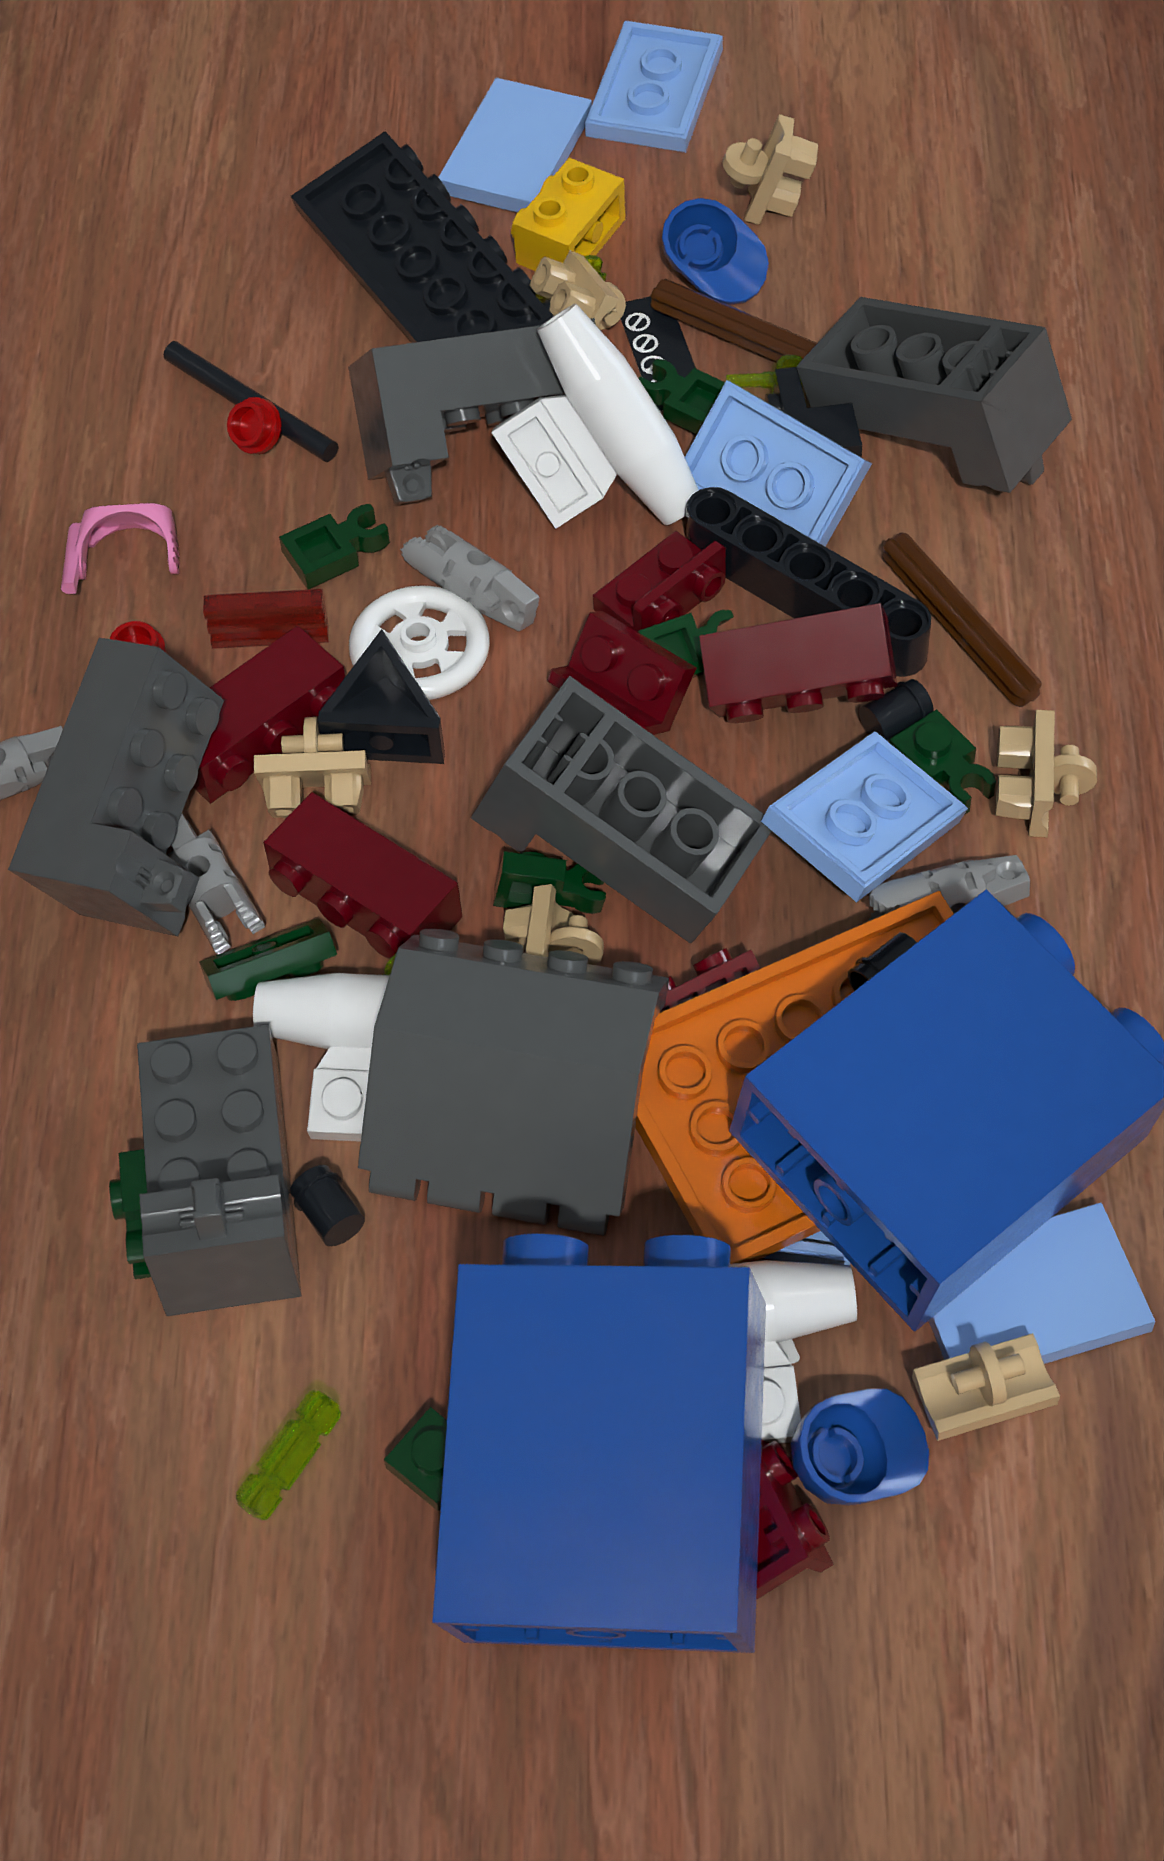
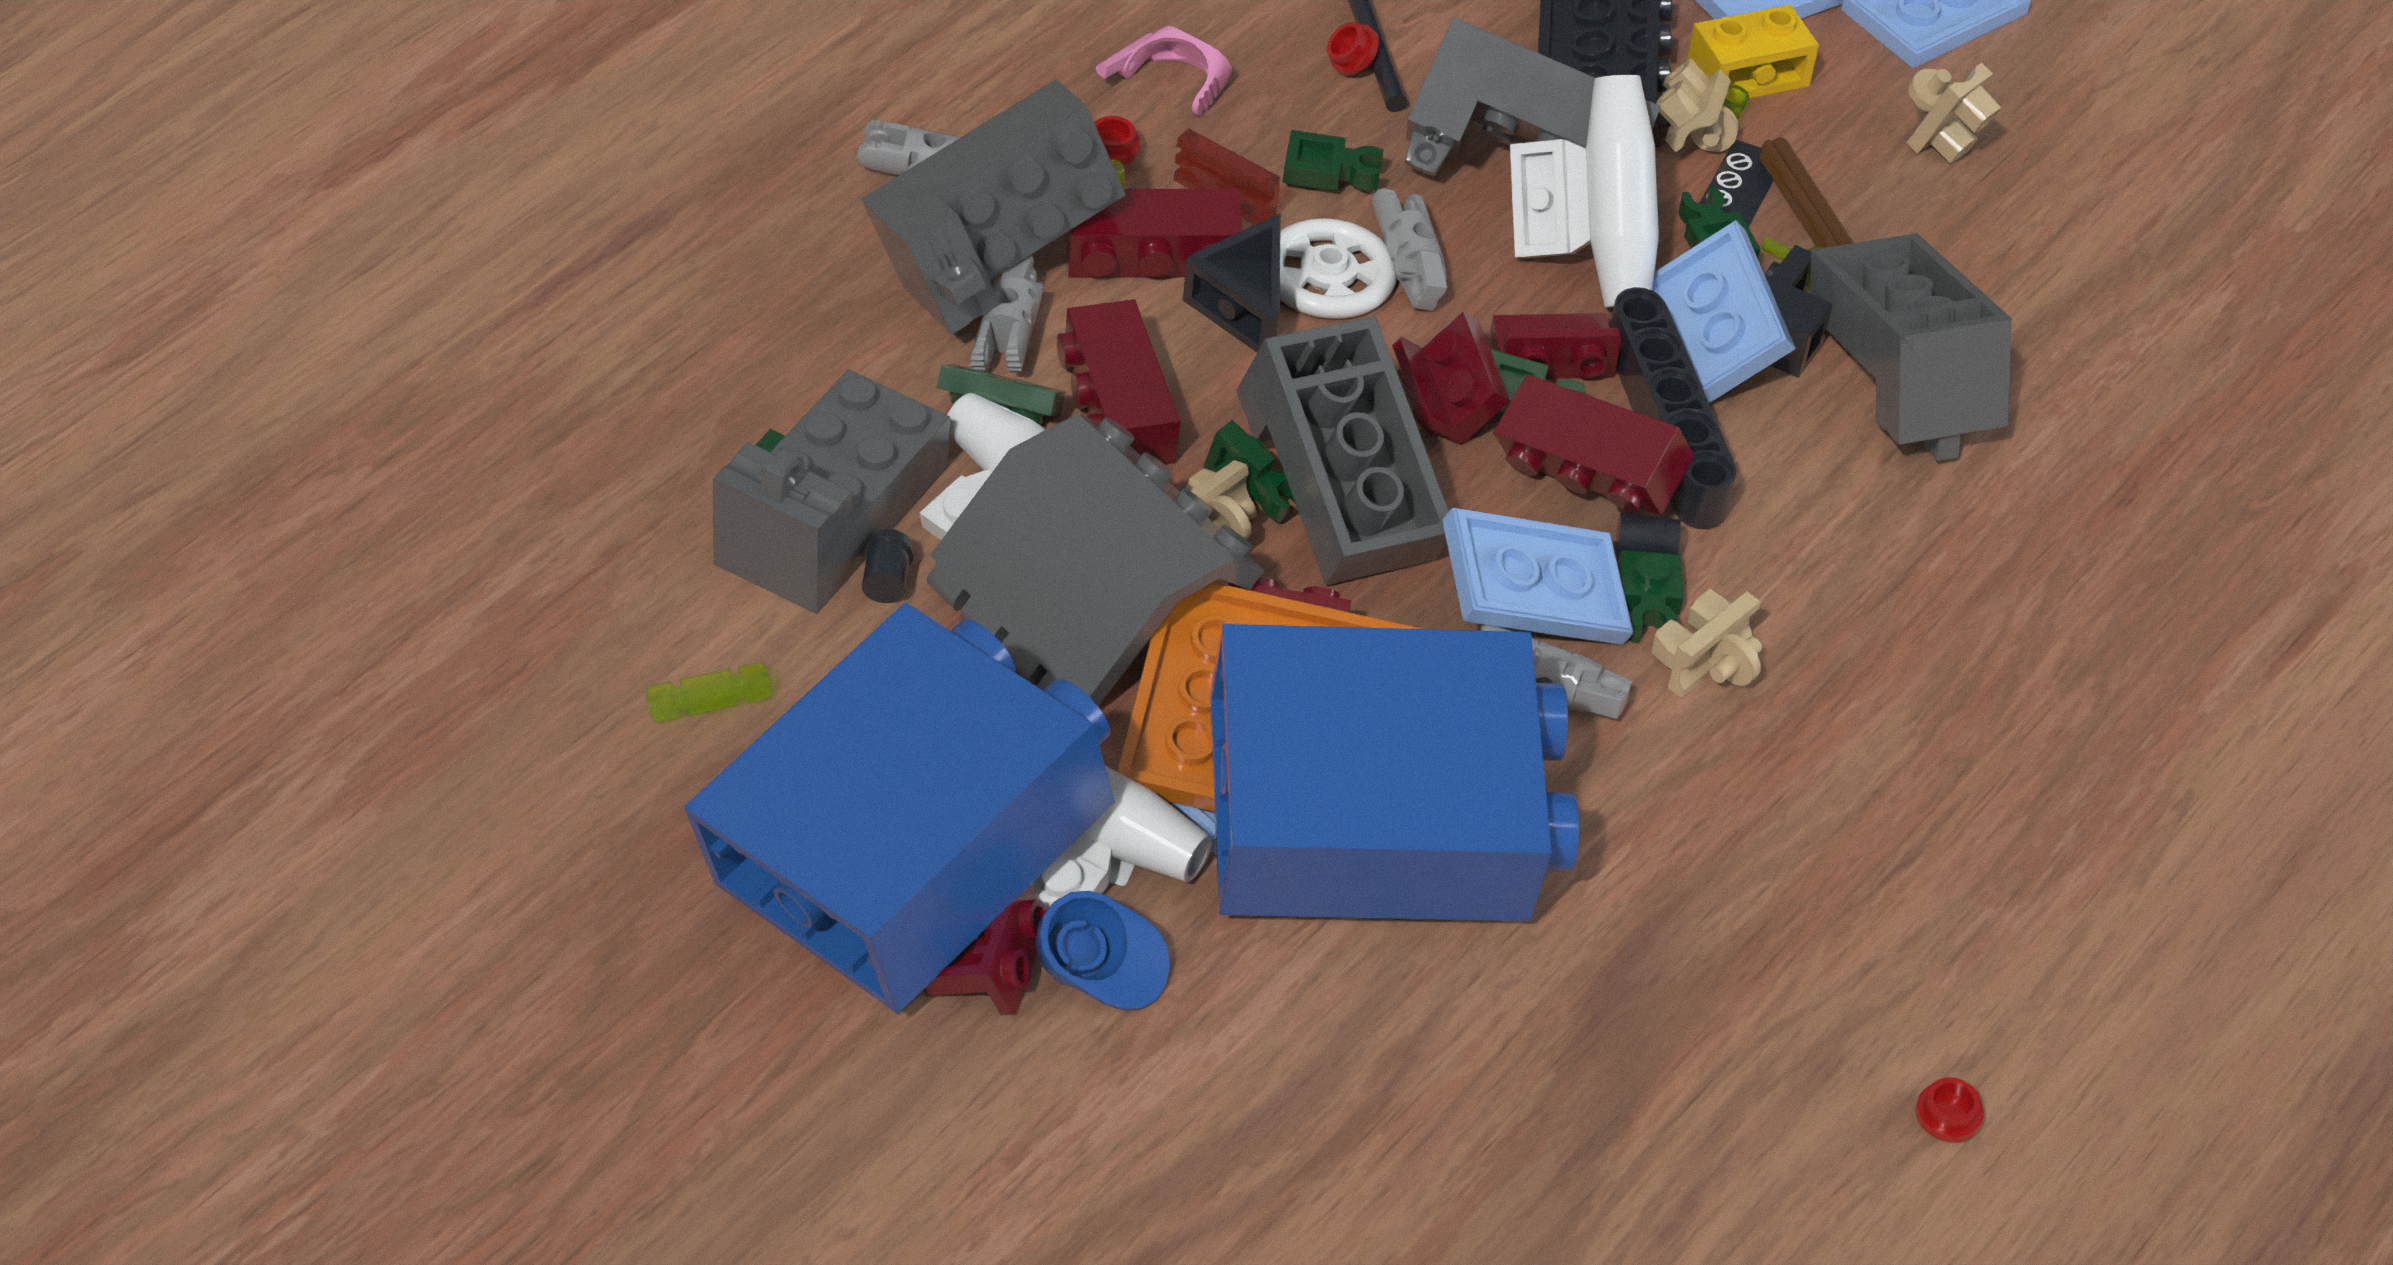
camera: 30 degrees right, 10 degrees down
(312, 762) = (1161, 289): tan hips -> none
(715, 251) = (1846, 143): blue cap -> none
(962, 620) = (1771, 512): reddish brown axle -> none
(985, 1386) = (1229, 975): tan hips -> none
(1060, 1284) = (1339, 967): light blue tile -> none

